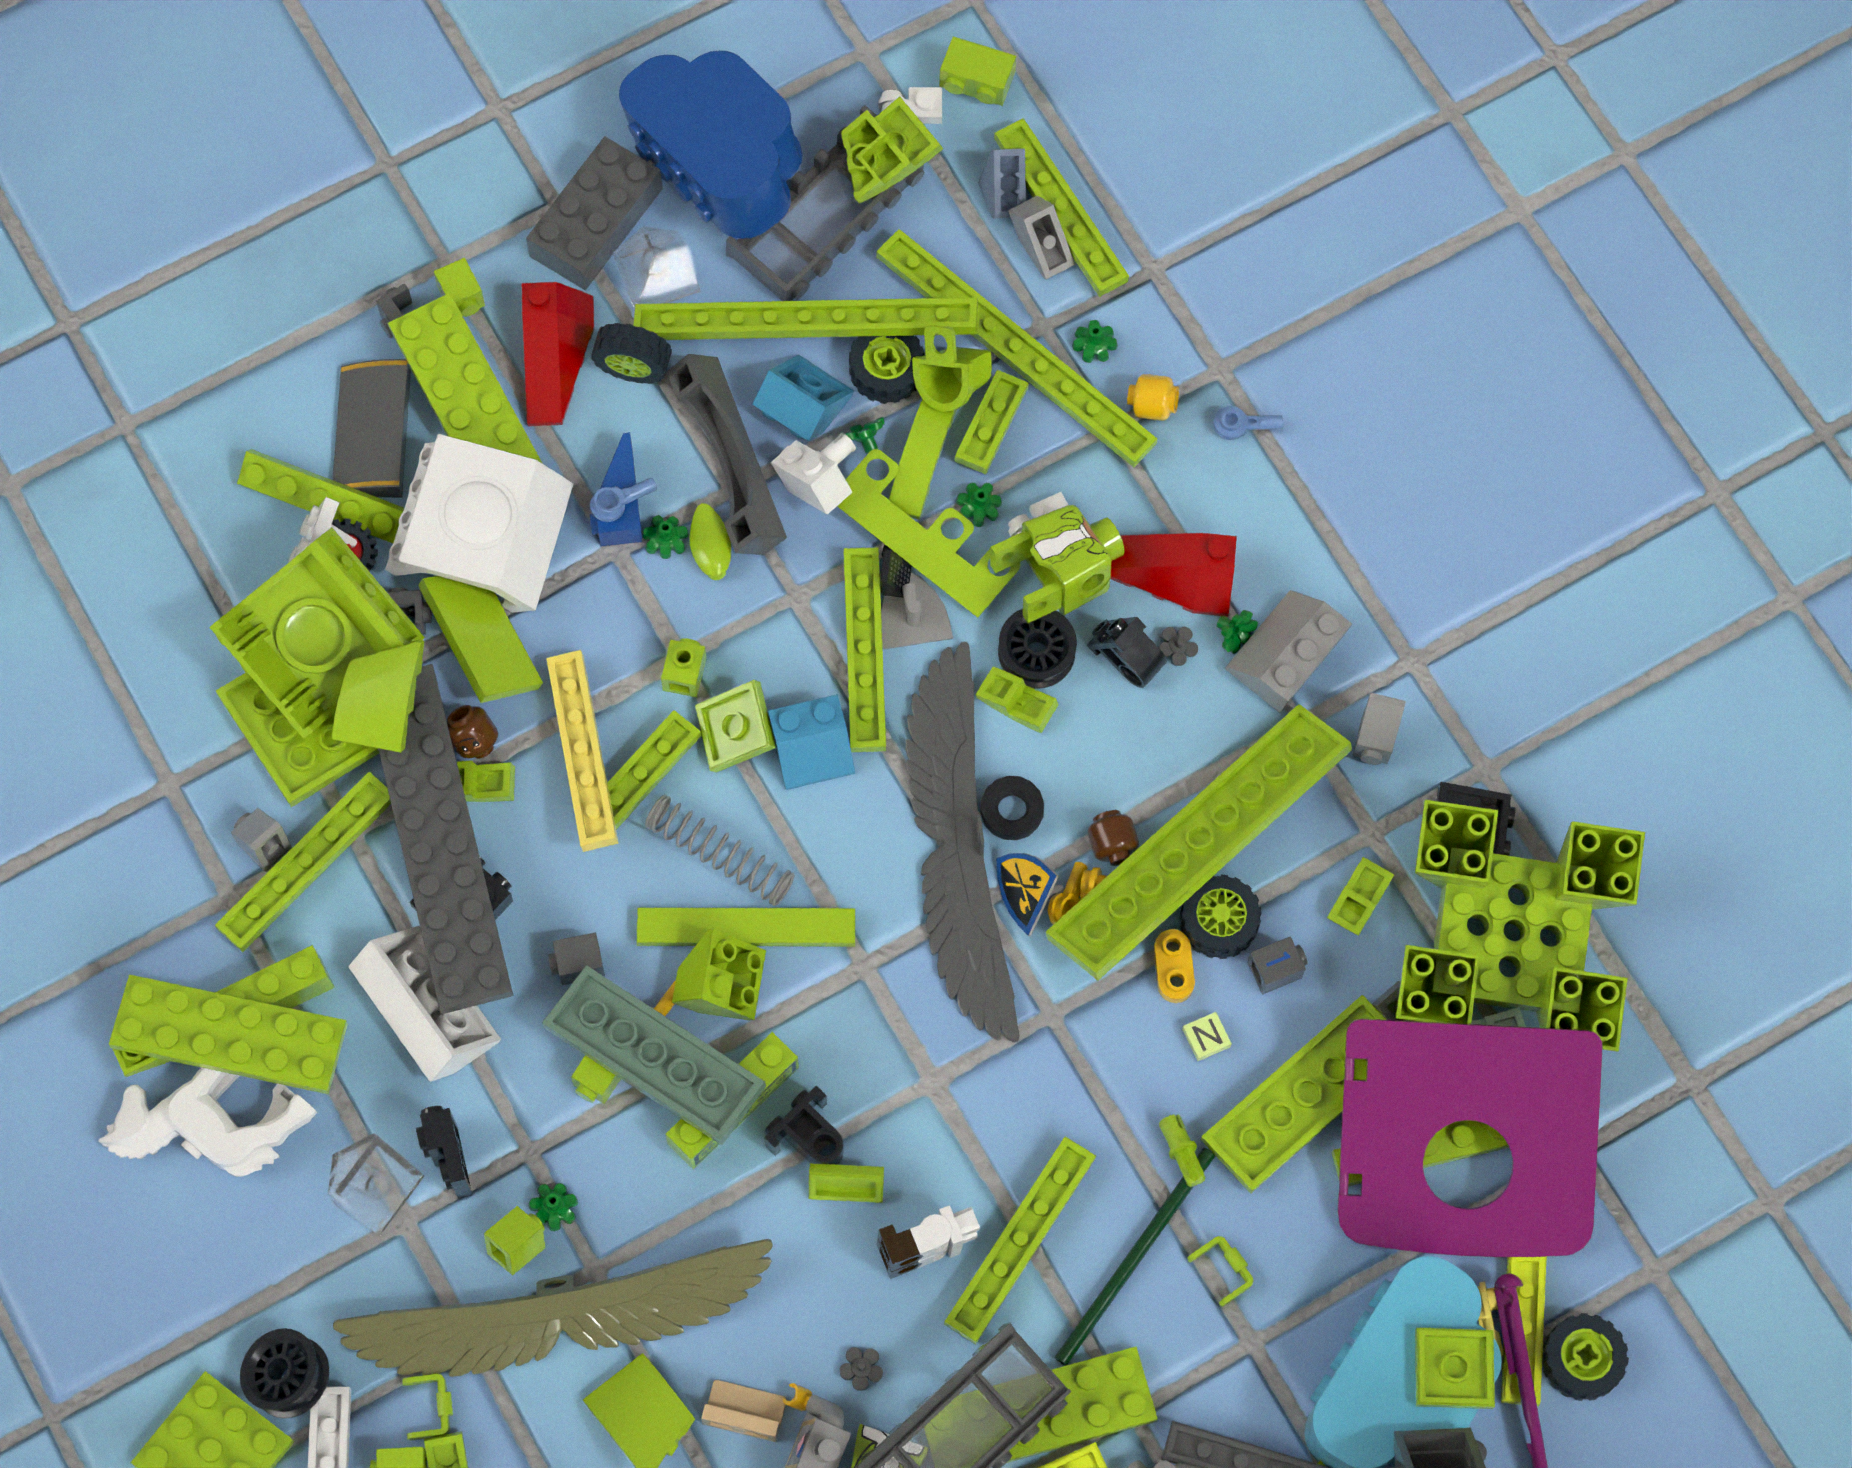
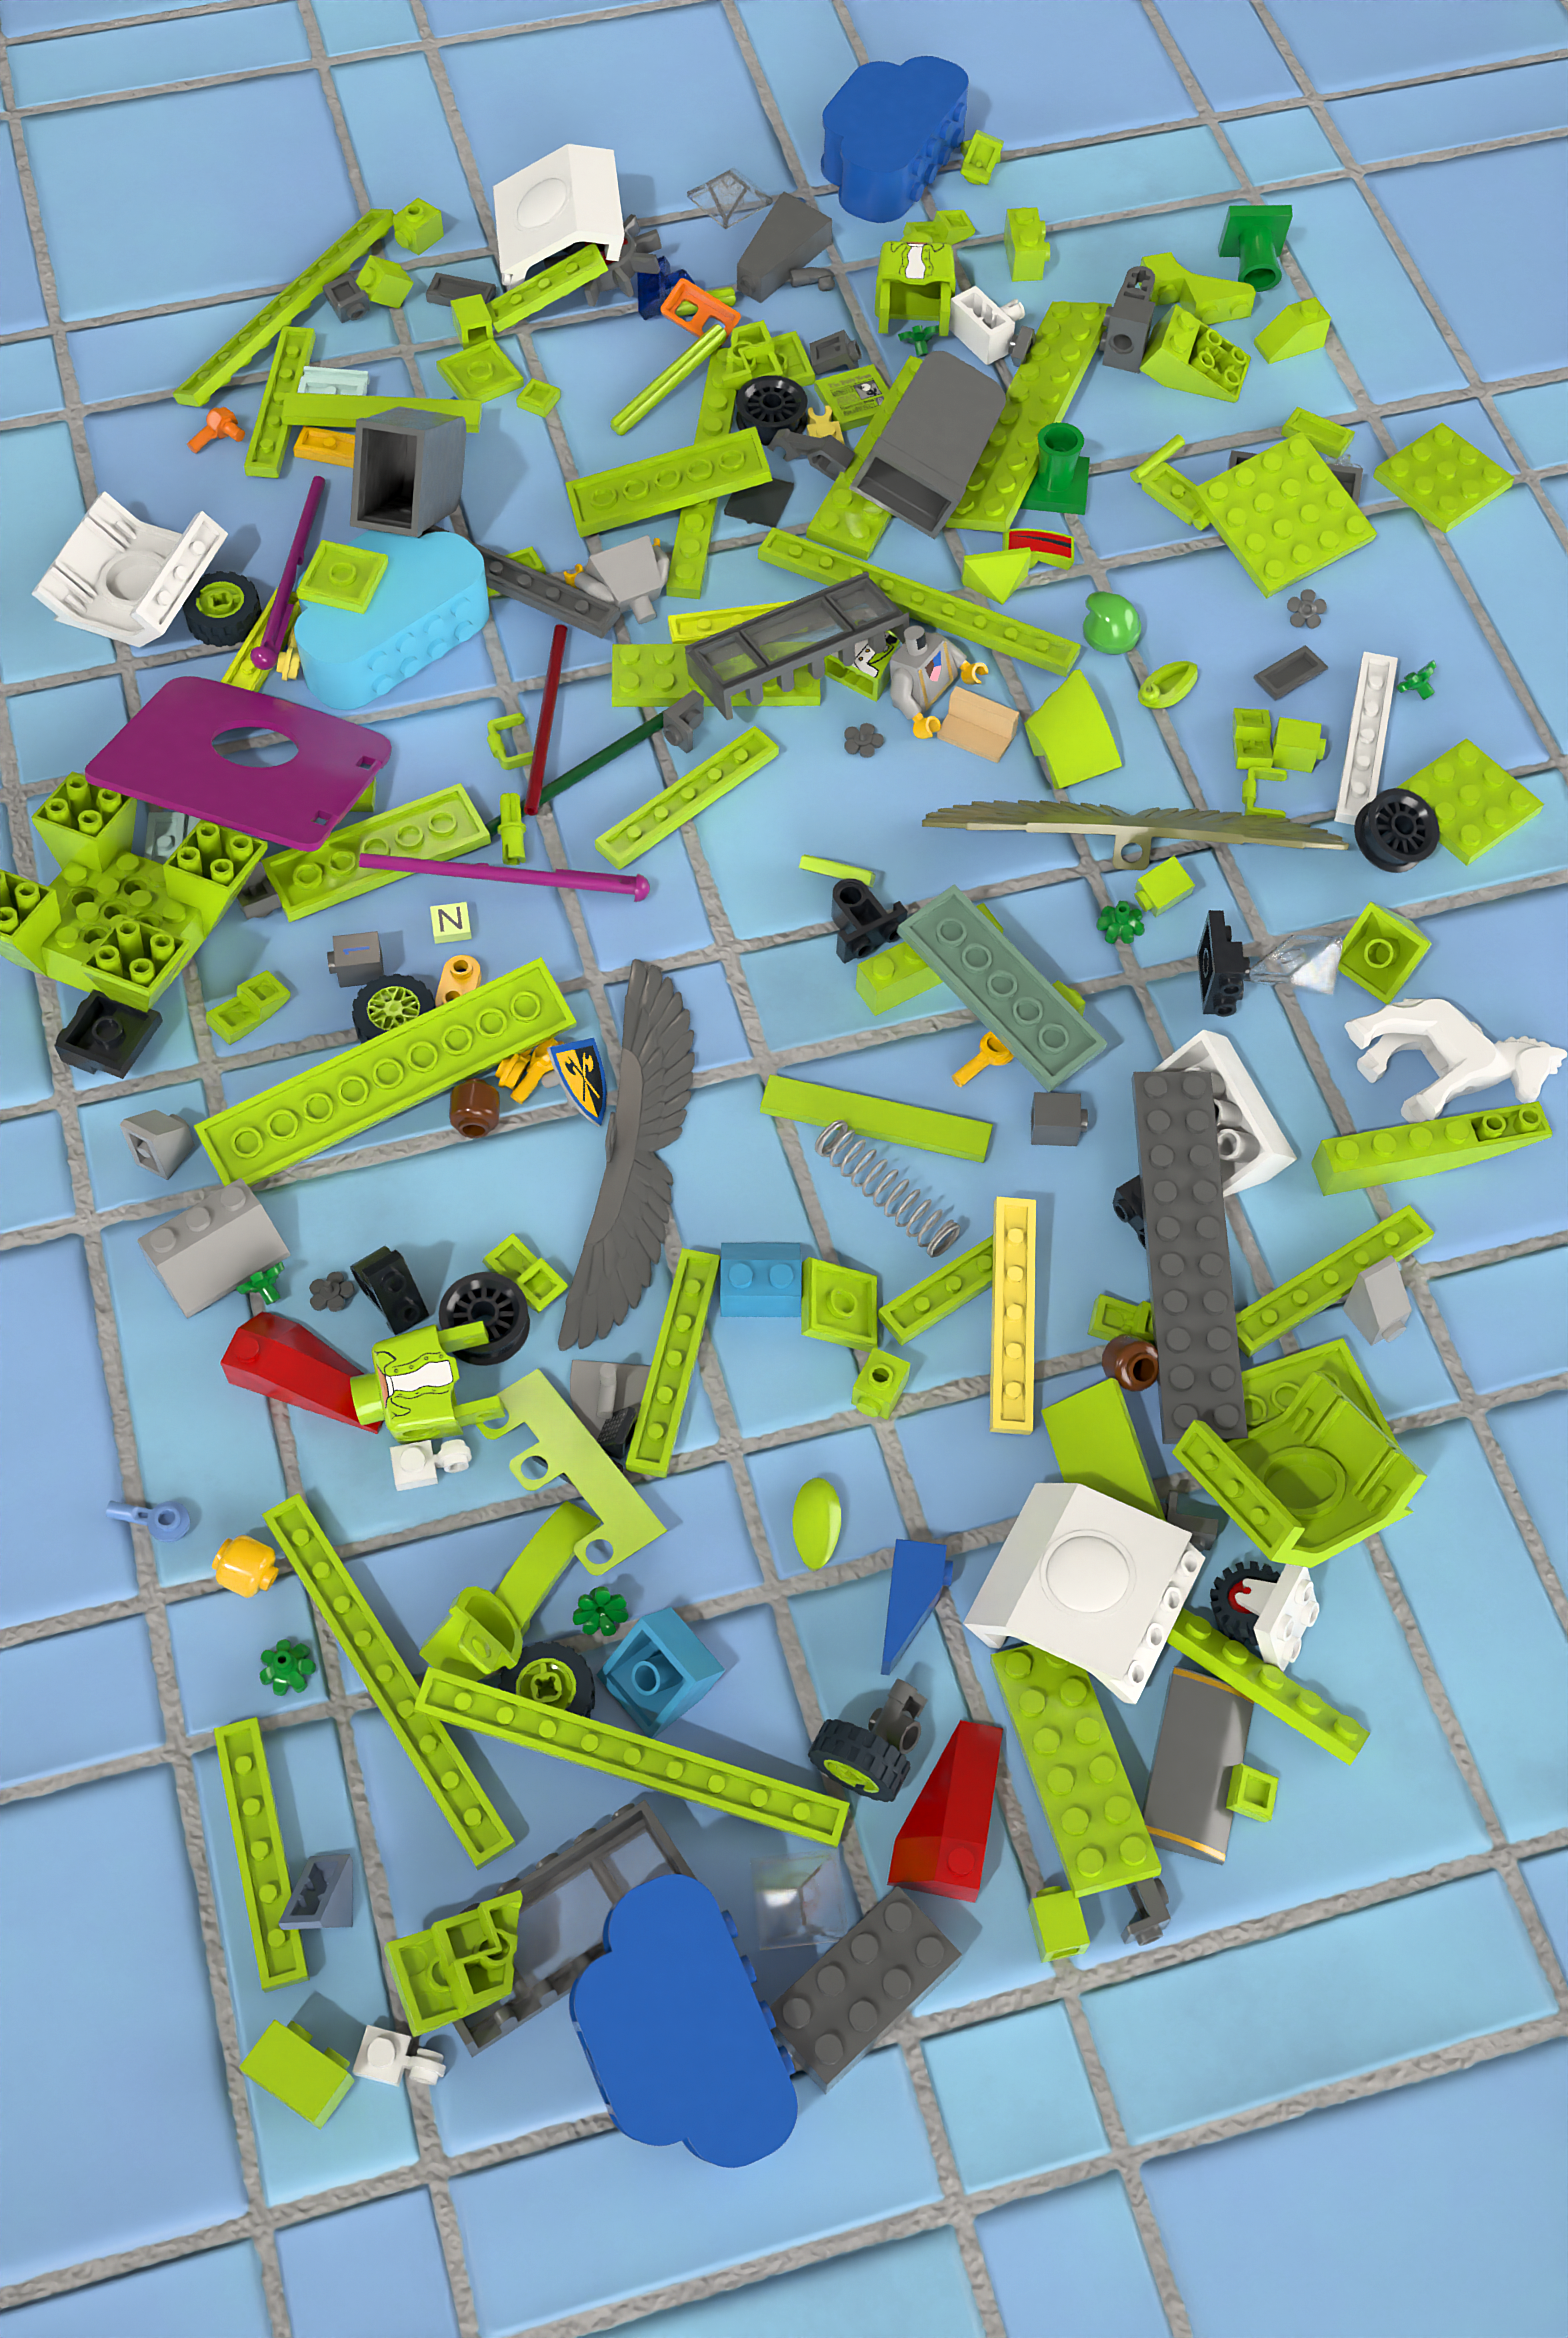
camera: 165 degrees left, 10 degrees down
(228, 1034) = (1432, 1098): lime plate -> none
(287, 1222) = (1382, 951): none -> lime slope
(325, 417) = (1252, 1793): none -> lime tile
(379, 697) = (1235, 1387): lime slope -> none
(609, 503) = (927, 1566): medium blue plate -> none
(613, 401) = (896, 1720): none -> dark grey plate
(665, 536) = (866, 1549): green plant -> none
(720, 977) = (916, 1062): lime slope -> none
(753, 518) = (778, 1703): dark grey arch -> none
(815, 474) = (676, 1554): white brick -> none
(927, 1241) = (776, 799): white hips -> none
(979, 503) = (493, 1502): green plant -> none
(991, 422) = (428, 1604): lime plate -> none
(1017, 828) = (571, 1188): black tyre -> none
(1042, 236) = (300, 1815): light grey slope -> none
(1051, 1337) = (682, 719): none -> dark grey bracket
(1112, 1106) = (561, 878): none -> magenta bar
(1195, 1303) = (545, 720): none -> dark red piece
(1696, 1370) = (125, 573): none -> white panel

